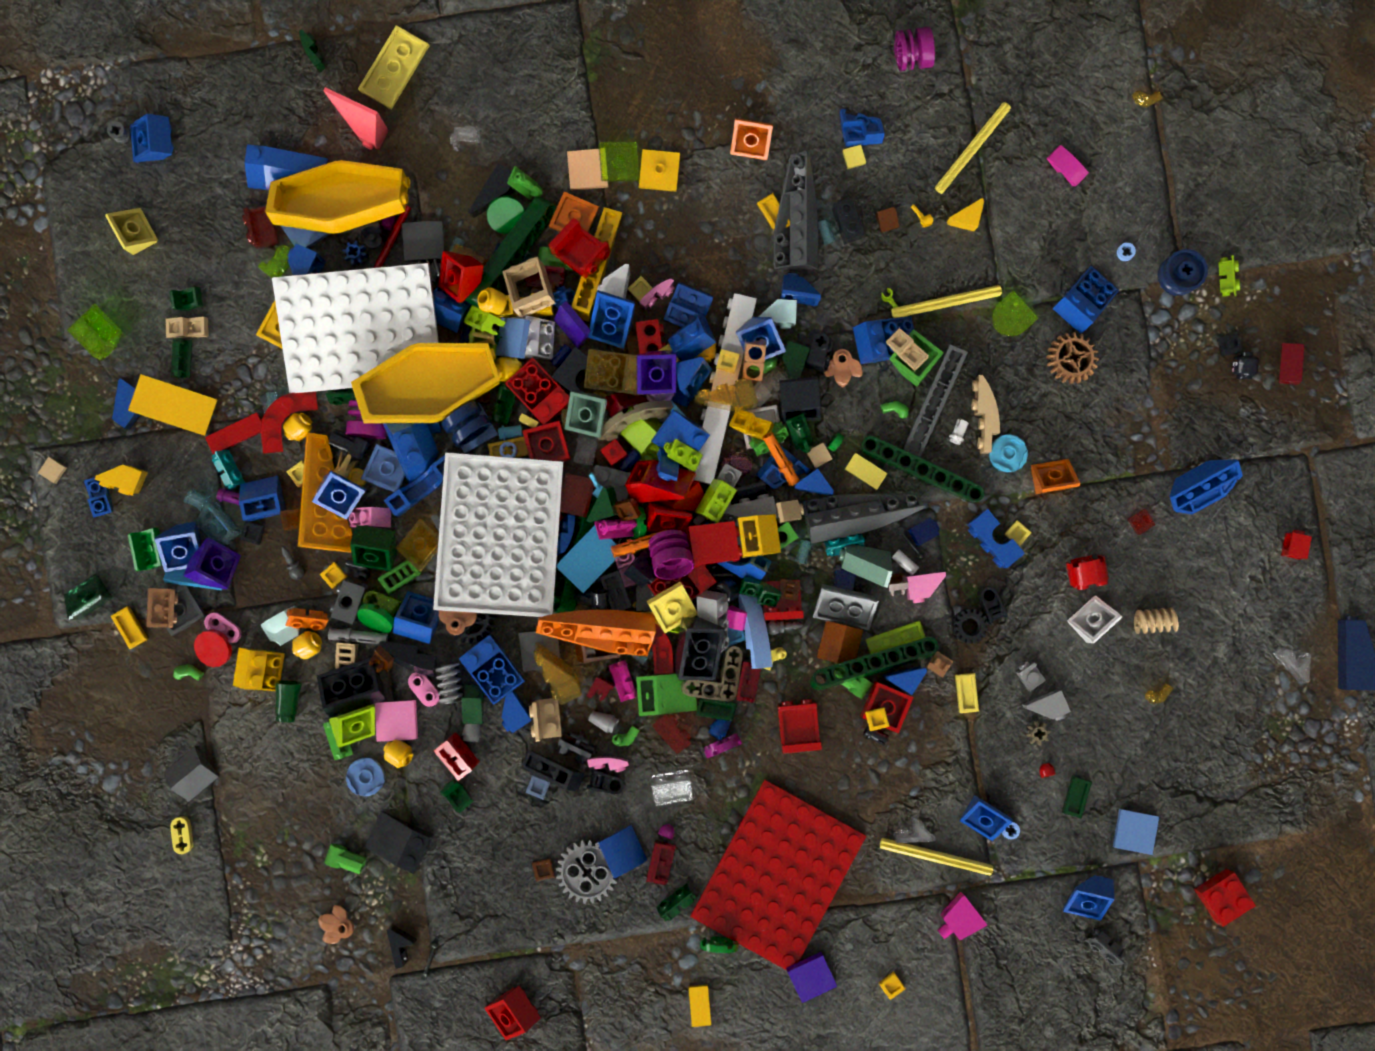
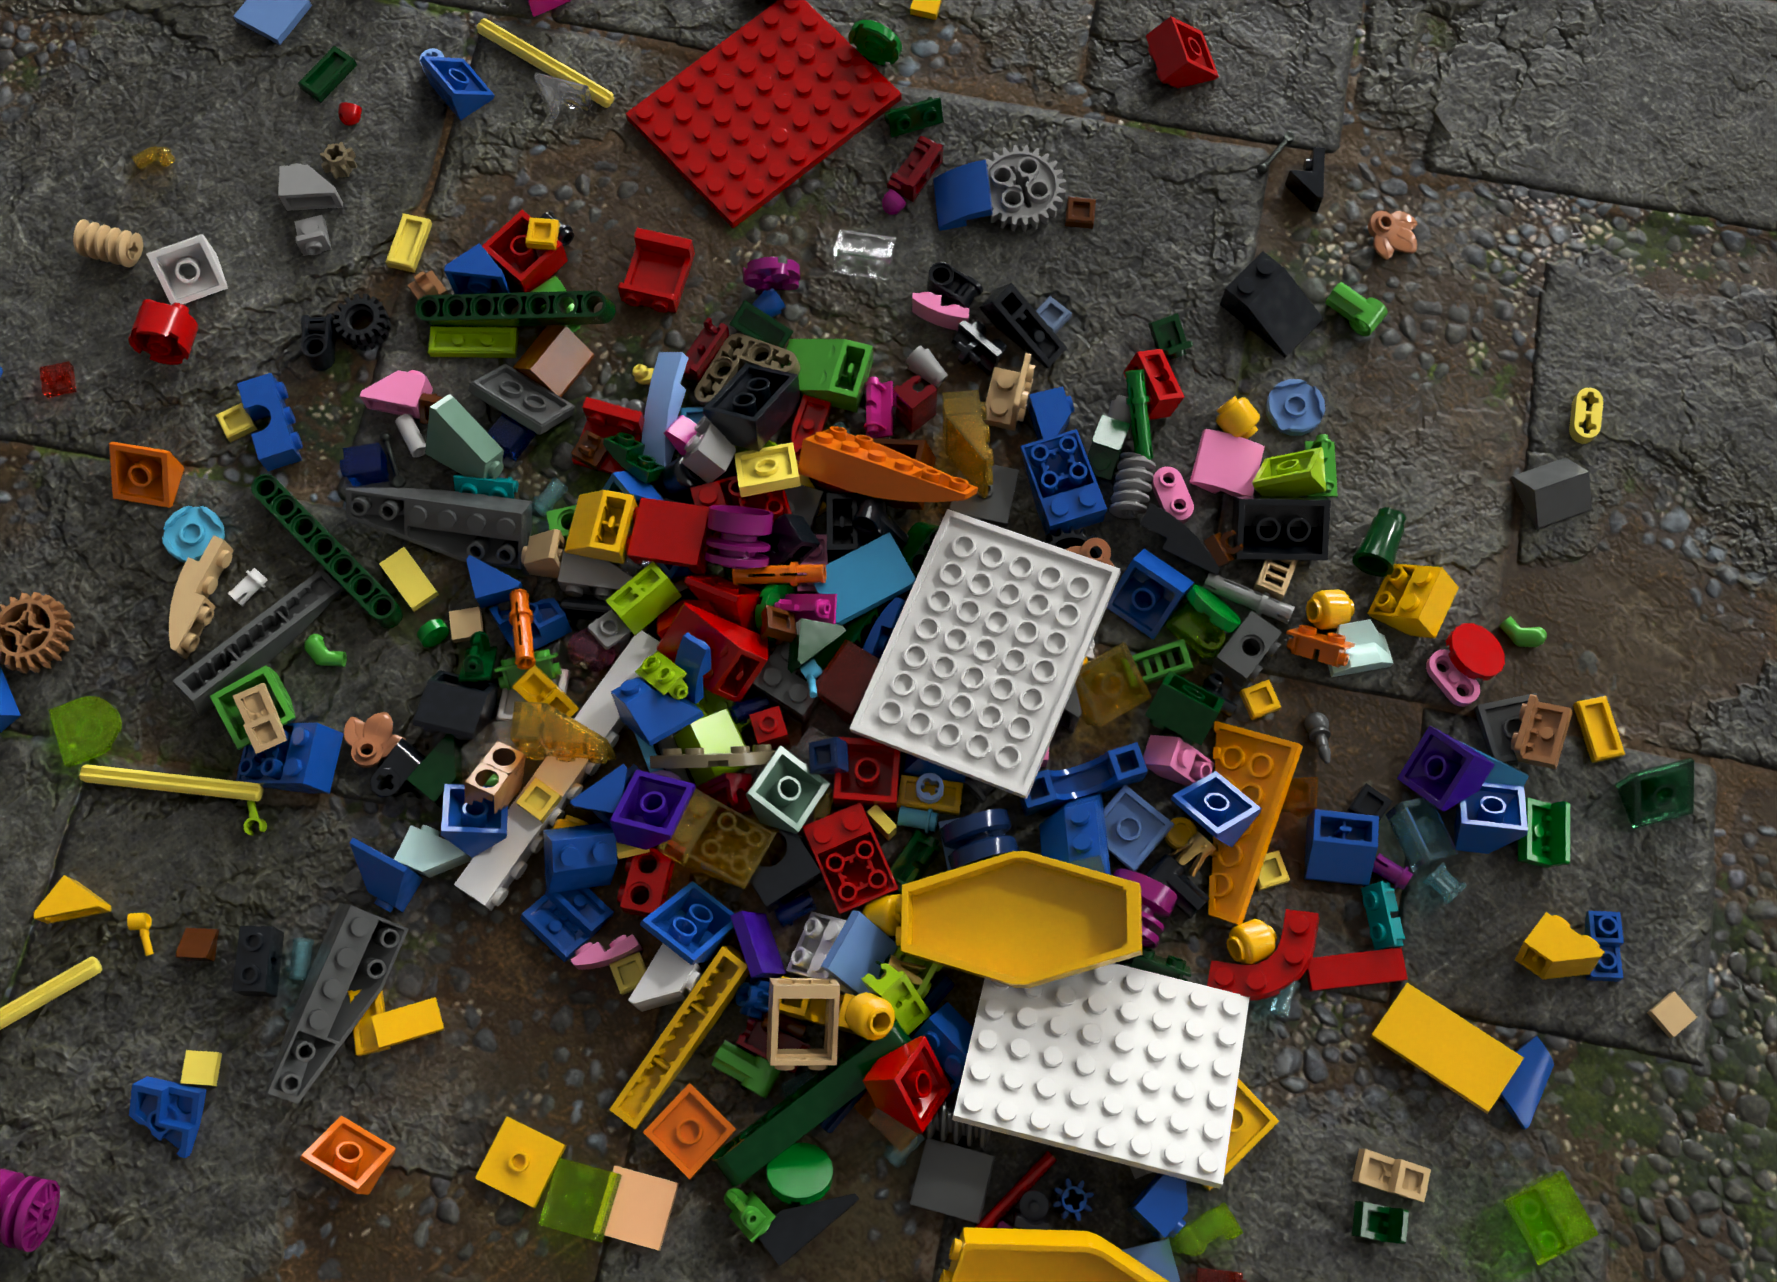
camera: 155 degrees left, 15 degrees down
(181, 358) = (1414, 1124): dark green hinge -> none
(462, 738) = (1138, 409): none -> green pin
(570, 442) = (828, 756): none -> dark blue slope
(579, 249) = (698, 1060): red panel -> none
(625, 739) = (903, 335): bright green arm -> none
(675, 737) = (834, 315): clear red bracket -> none
(751, 218) = (407, 1023): none -> yellow tile

